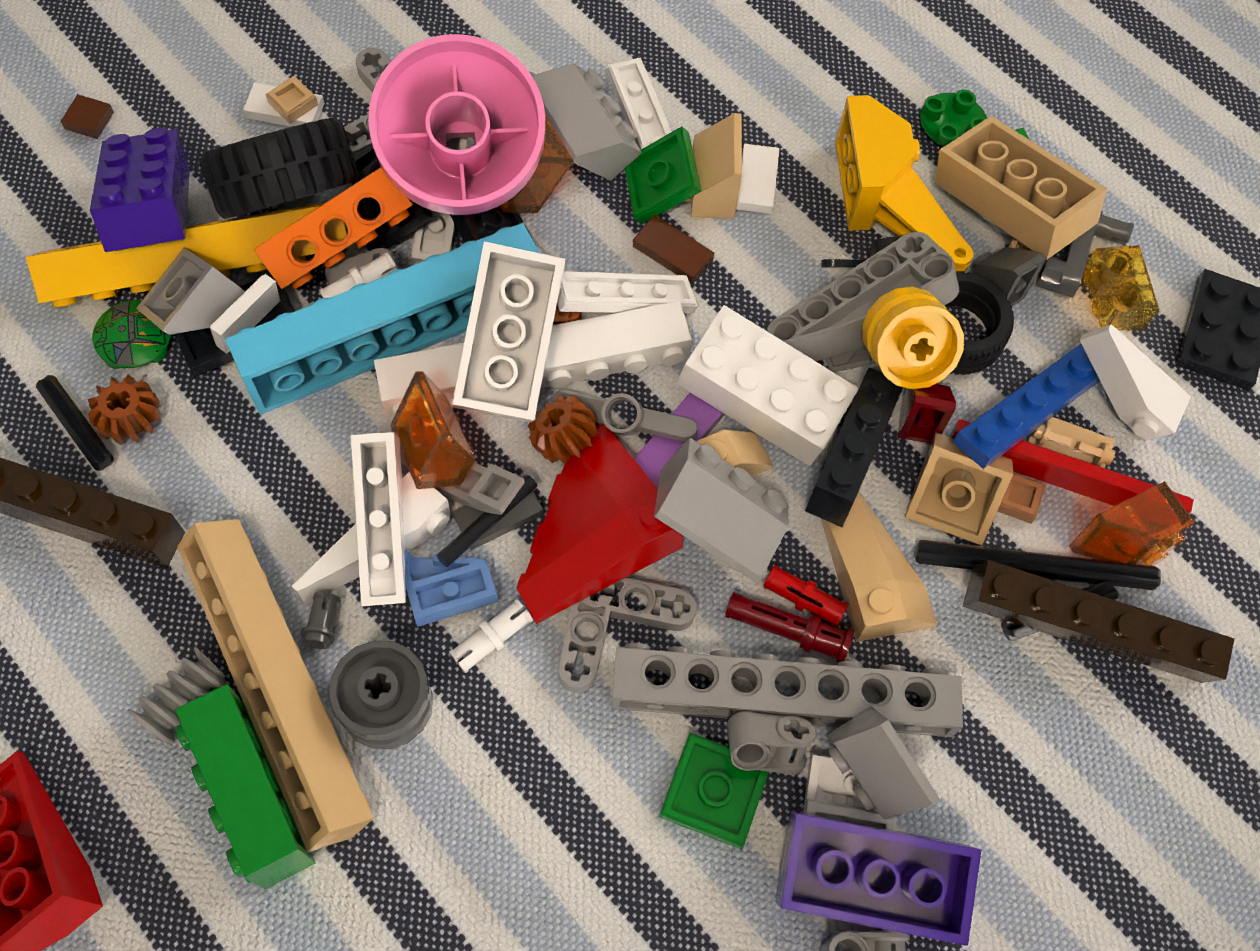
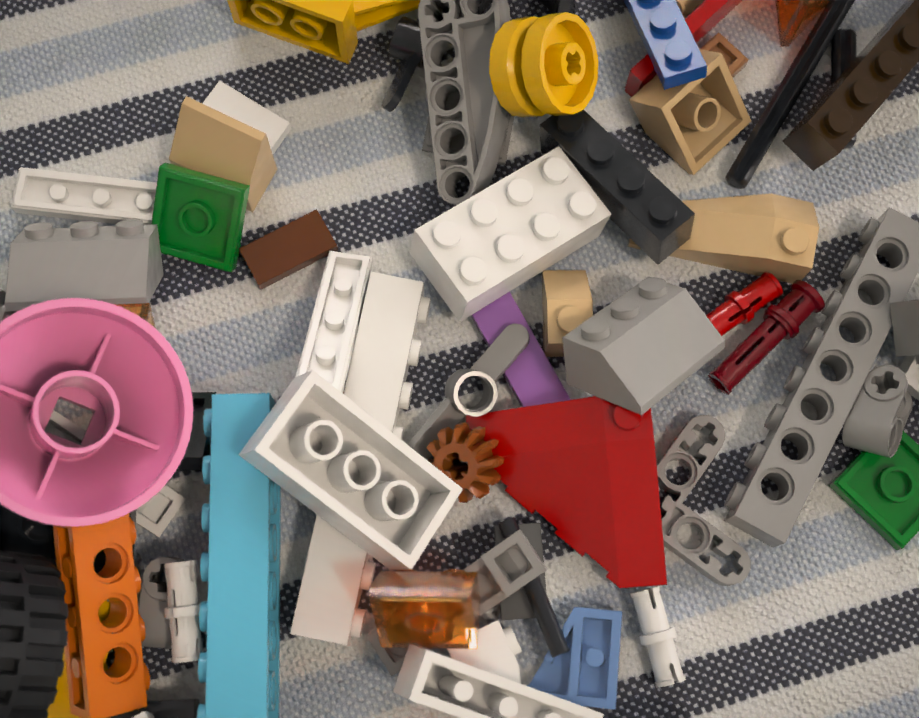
camera: 65 degrees left, 10 degrees up
(925, 412) = (612, 92): dark red slope -> none

